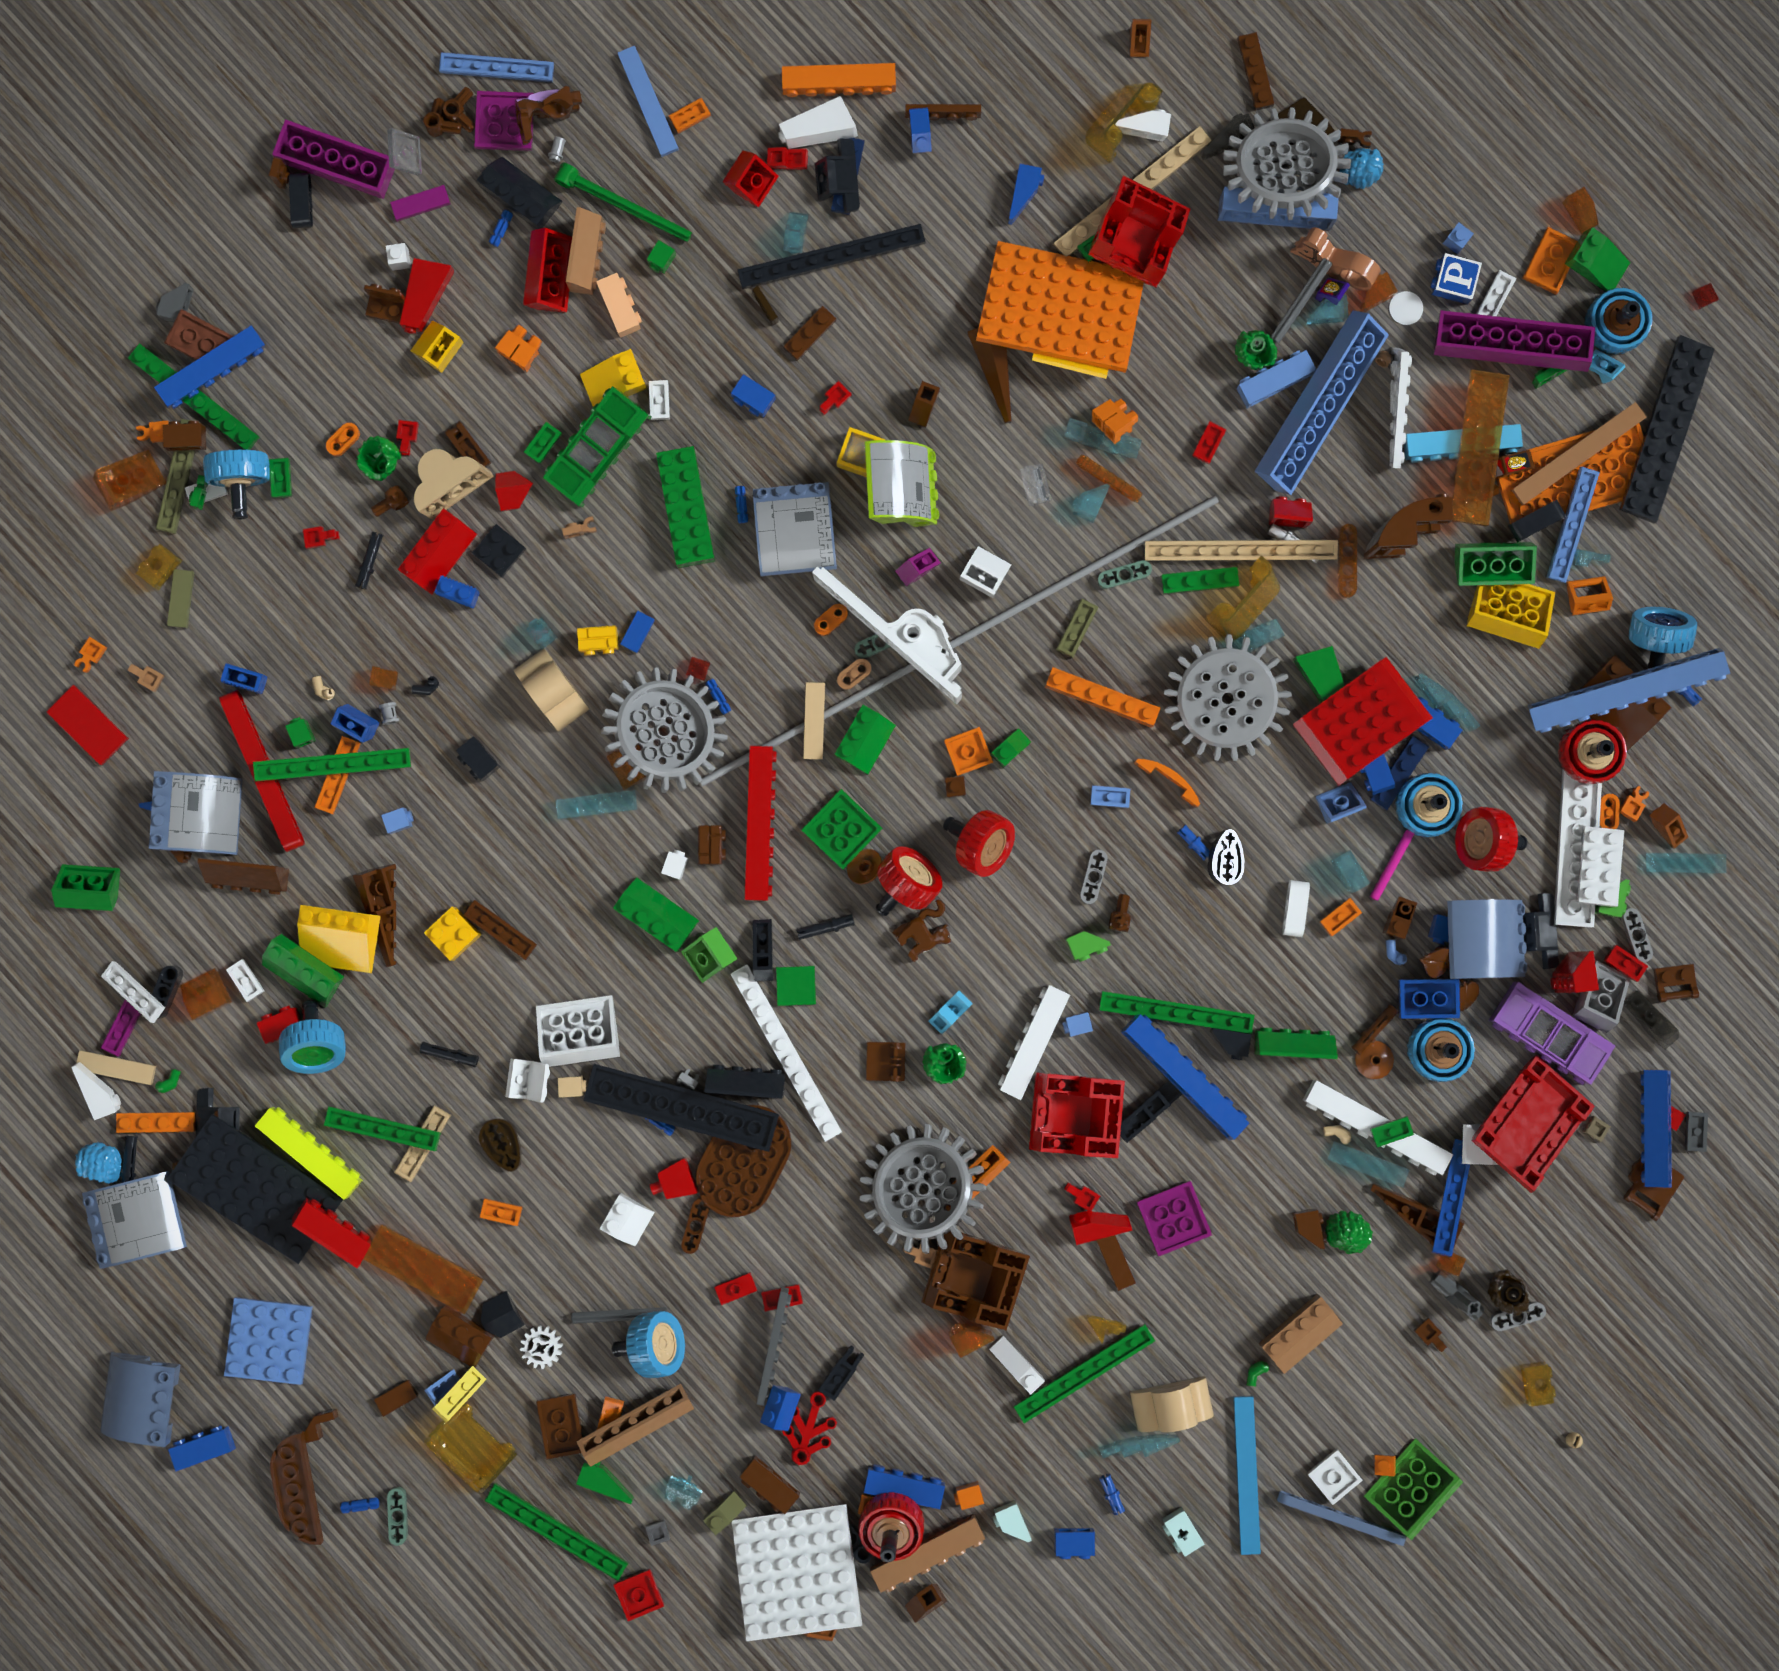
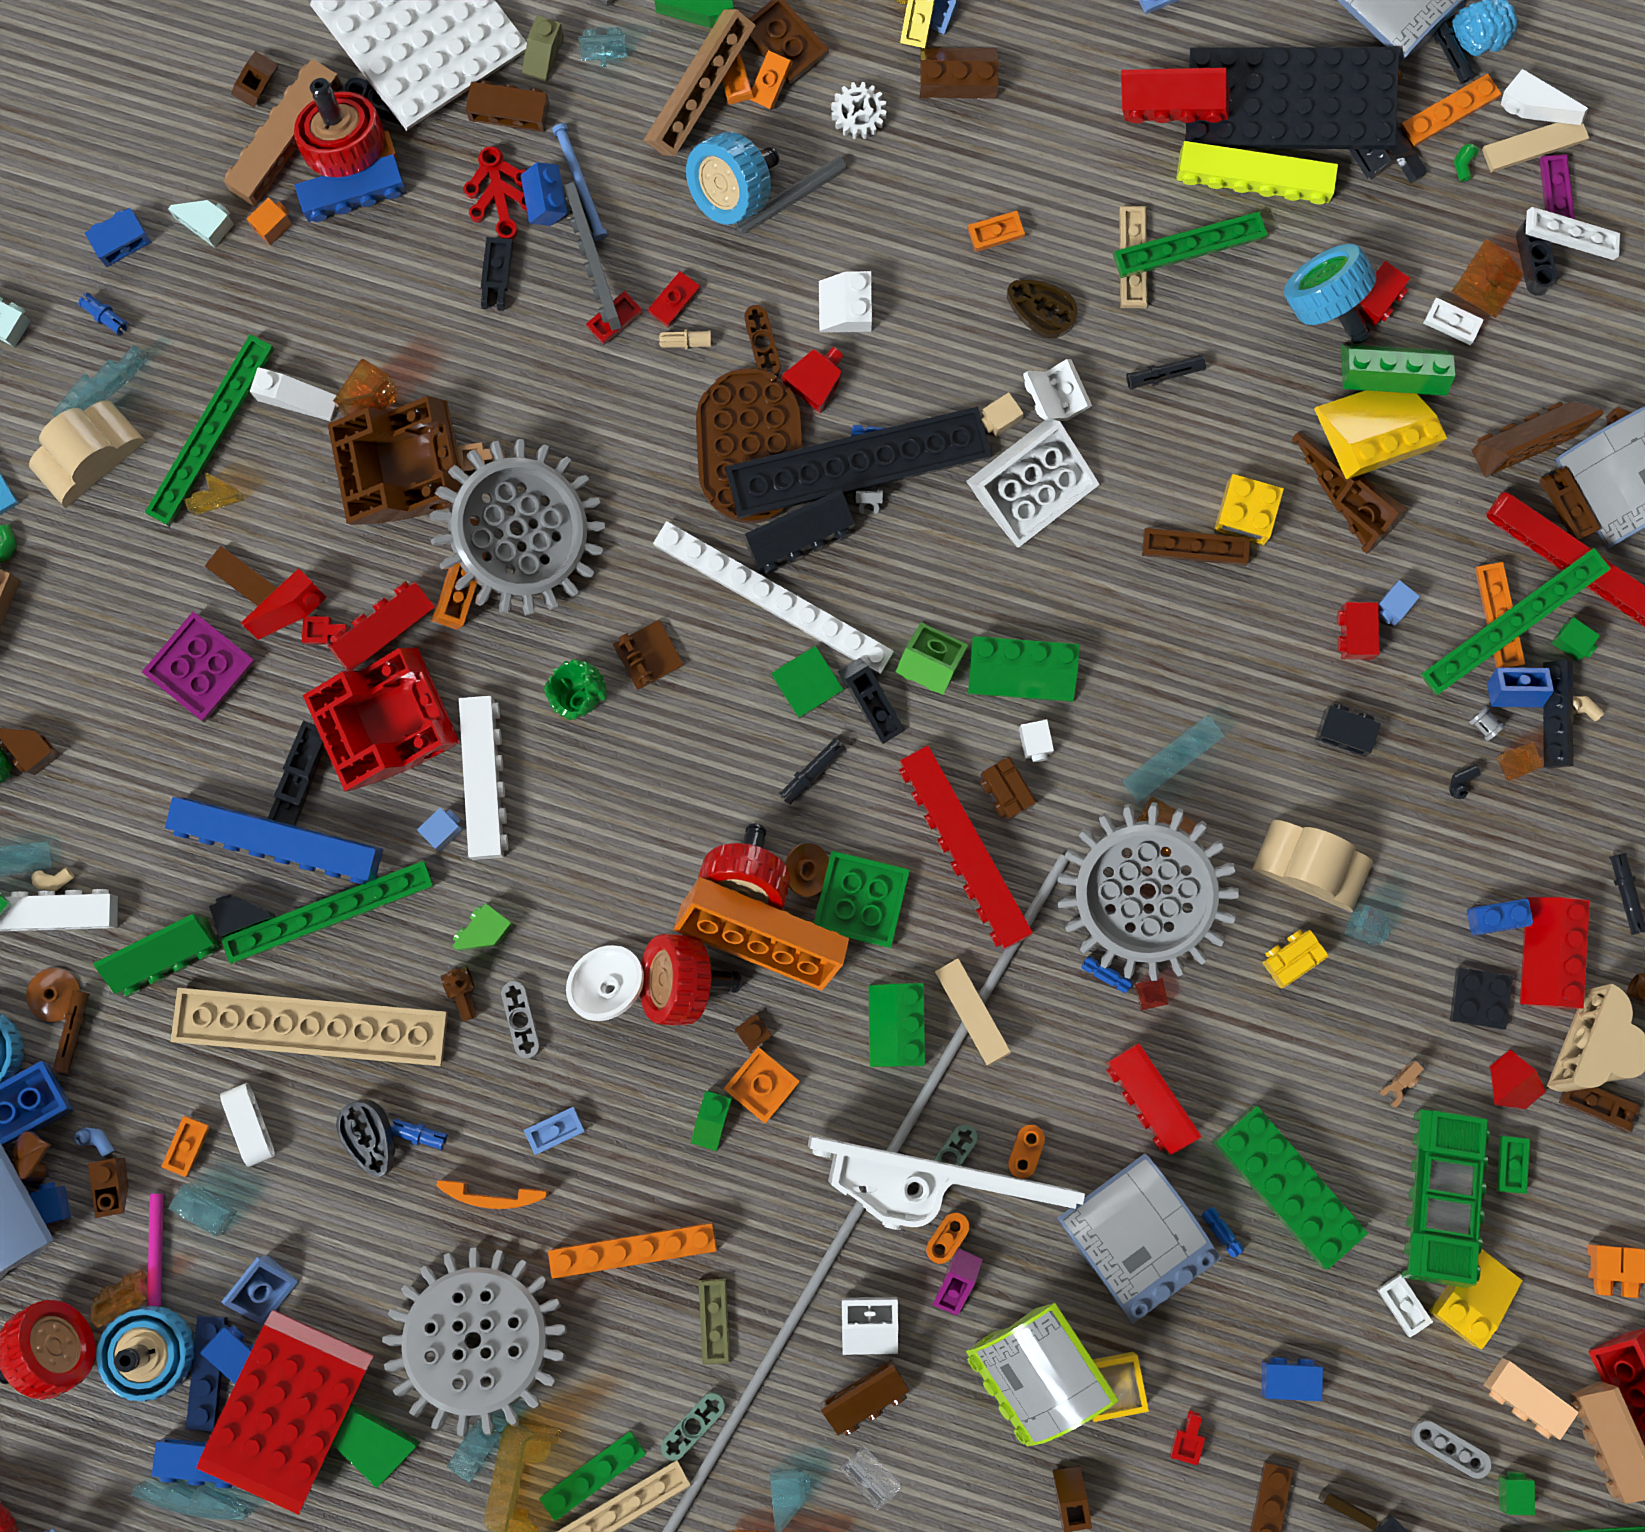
camera: 155 degrees right, 5 degrees down
(248, 819) = (1570, 504): none -> reddish brown plate
(341, 692) = (1559, 716): none -> black plate
(423, 1269) = (1045, 120): clear orange plate -> none
(432, 817) = (1358, 631): none -> red brick
(500, 1315) = (926, 120): black slope -> none
(586, 1402) = (770, 79): none -> orange plate
(637, 632) = (1252, 997): blue tile -> none
(679, 297) = (1459, 1457): none -> light grey plate
(737, 605) = (1153, 1099): none -> red slope
(744, 1256) = (685, 339): none -> tan axle
(751, 1405) = (560, 130): none -> medium blue bar
(853, 673) = (957, 1099): medium nougat plate -> none
(908, 596) = (947, 1237): none -> orange plate
(916, 840) = (761, 934): none -> orange brick
(920, 933) = (693, 828): reddish brown animal -> none
(950, 1012) = (604, 755): medium azure slope -> none
(1012, 531) = (865, 1398): none -> reddish brown slope
(1029, 877) = (599, 974): none -> white dish
(1044, 1176) = (380, 626): none -> red brick
(1226, 947) = (309, 1026): none -> tan plate
(1428, 846) = (118, 1298): none -> clear orange plate

